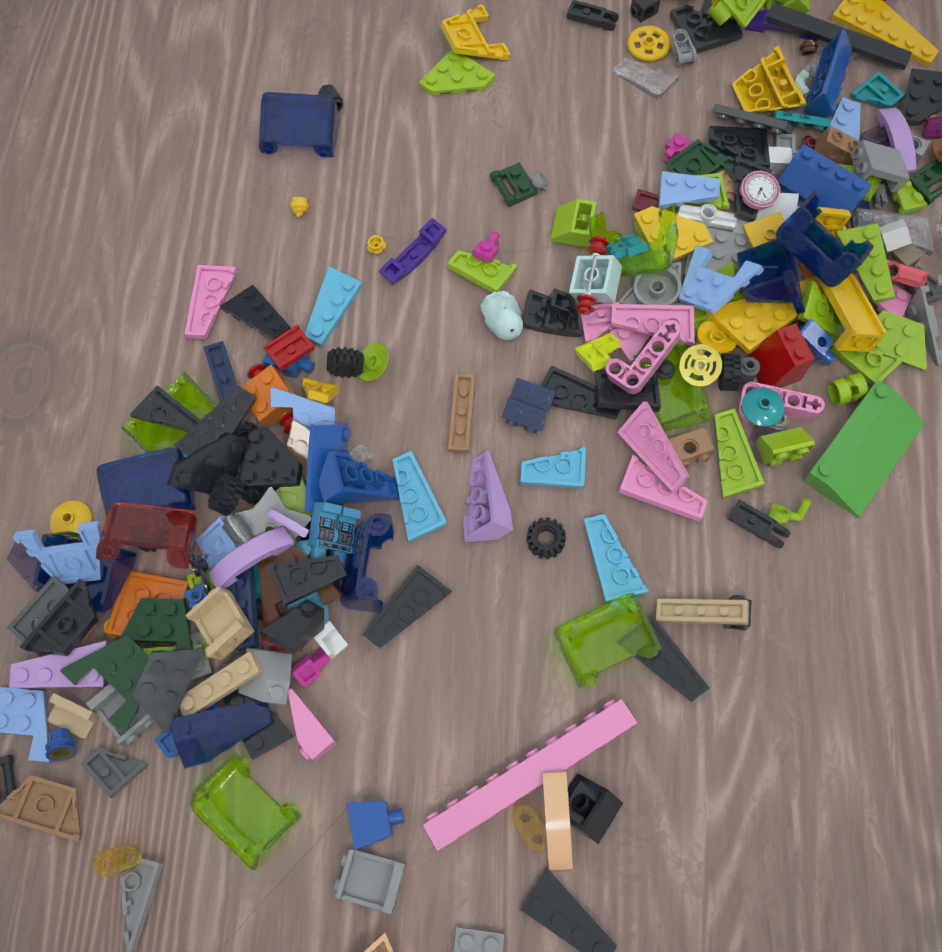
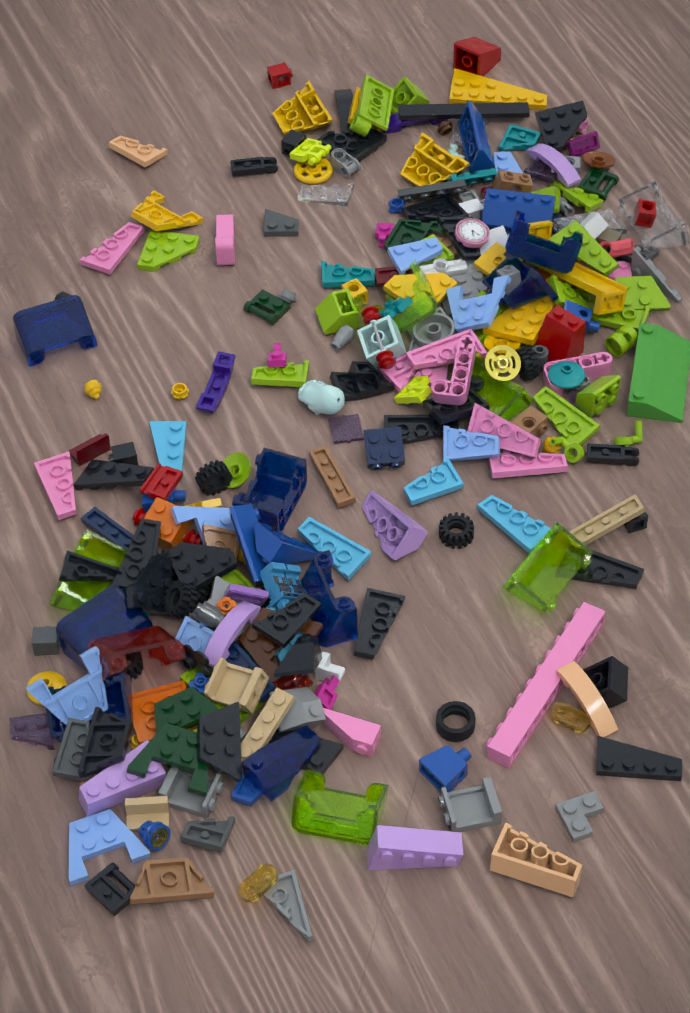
camera: 30 degrees left, 20 degrees down
(88, 467) = (45, 641): none -> dark grey brick
(258, 272) = (90, 449): none -> dark red panel
(264, 521) = (226, 601): none -> orange plate
(281, 296) = (124, 453): none -> black brick
(285, 907) = (413, 848): none -> lavender wedge
(389, 408) = (276, 487): none -> clear blue windscreen
(401, 757) = (458, 708): none -> black tyre
(408, 55) = (114, 249): none -> bright pink wing
(509, 99) = (225, 240): none -> bright pink beam
(509, 361) = (346, 429): none -> clear purple piece
(564, 253) = (342, 337): none -> light grey cone
(579, 94) = (279, 225): none -> dark grey wing
(604, 180) = (336, 275): none -> teal wing
(606, 203) = (356, 287): none -> yellow brick
(614, 443) = (465, 445): none -> light blue wing
(652, 18) = (311, 150): none -> neon yellow plate
(701, 483) = (547, 448): none -> yellow plate
(707, 119) = (396, 205): none -> blue plate
(718, 502) = (569, 449): none -> lime plate
(770, 263) = (514, 275): none -> light grey brick
(880, 162) = (544, 180): light grey panel -> none

